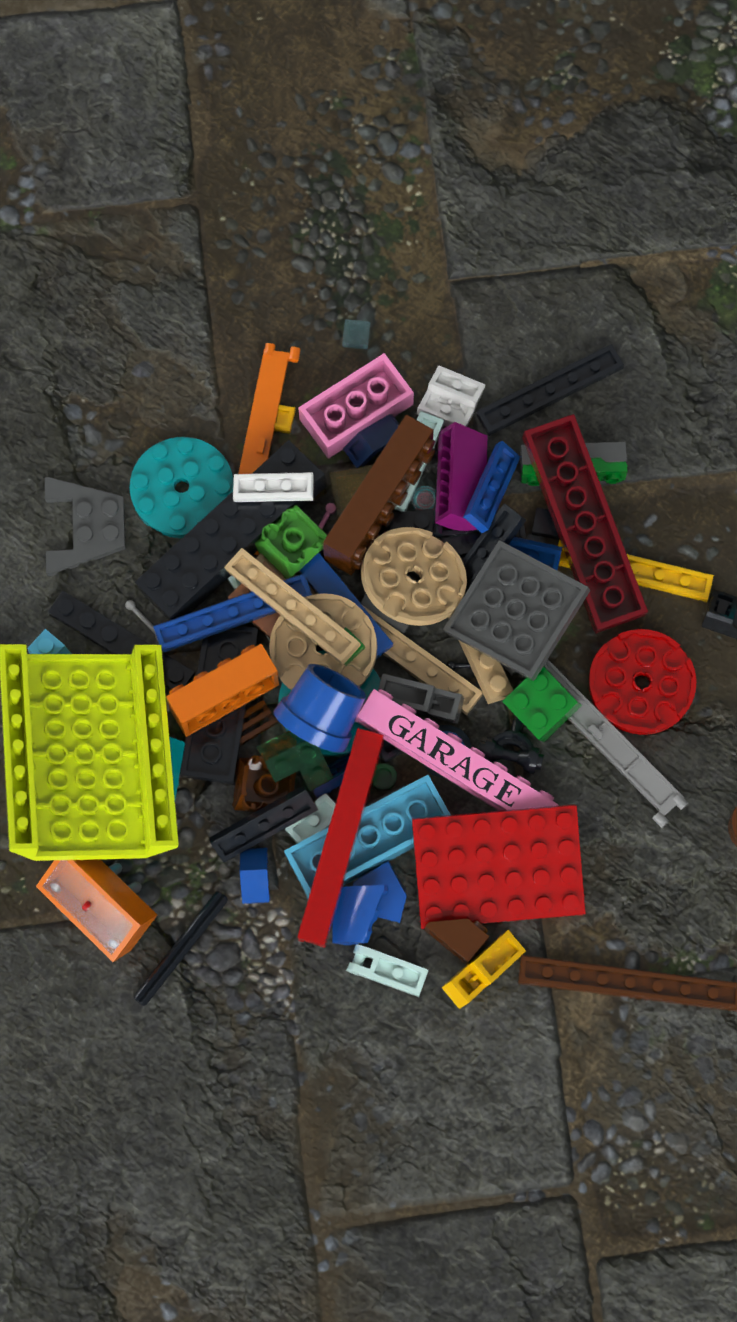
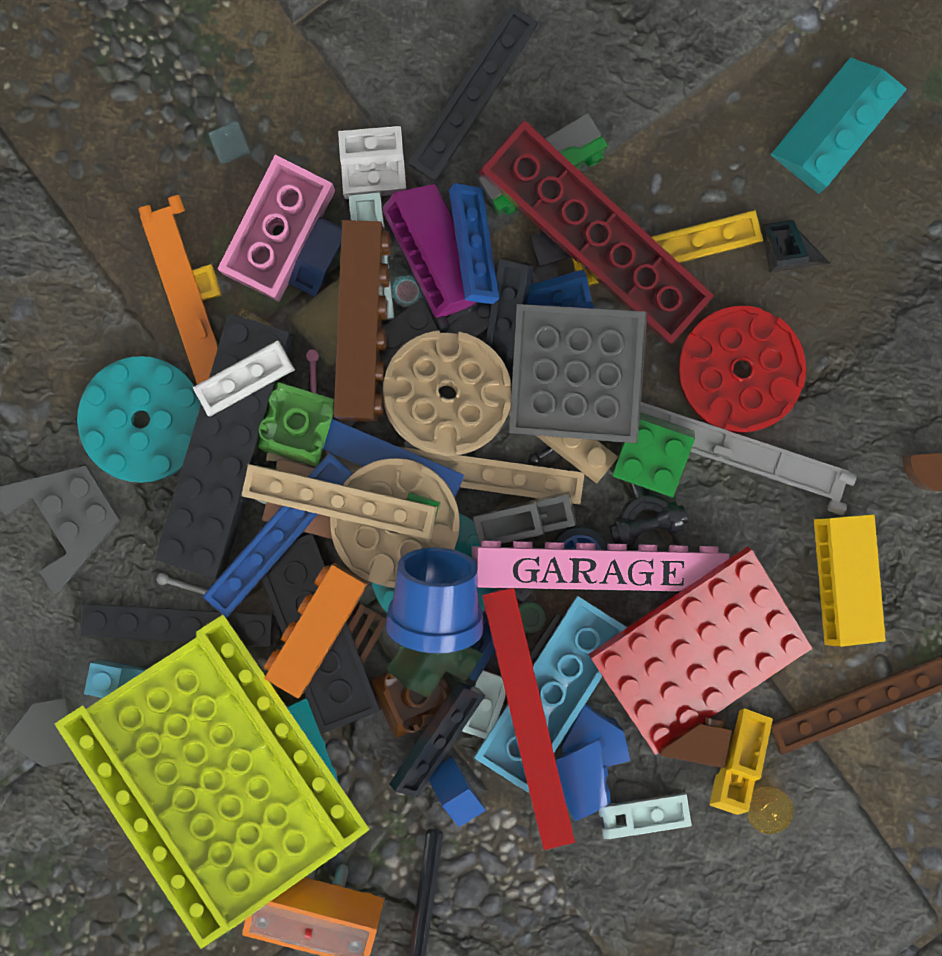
camera: 30 degrees left, 15 degrees up
(485, 1018) = (770, 810): none -> clear yellow plate
(641, 877) = (849, 580): none -> yellow brick

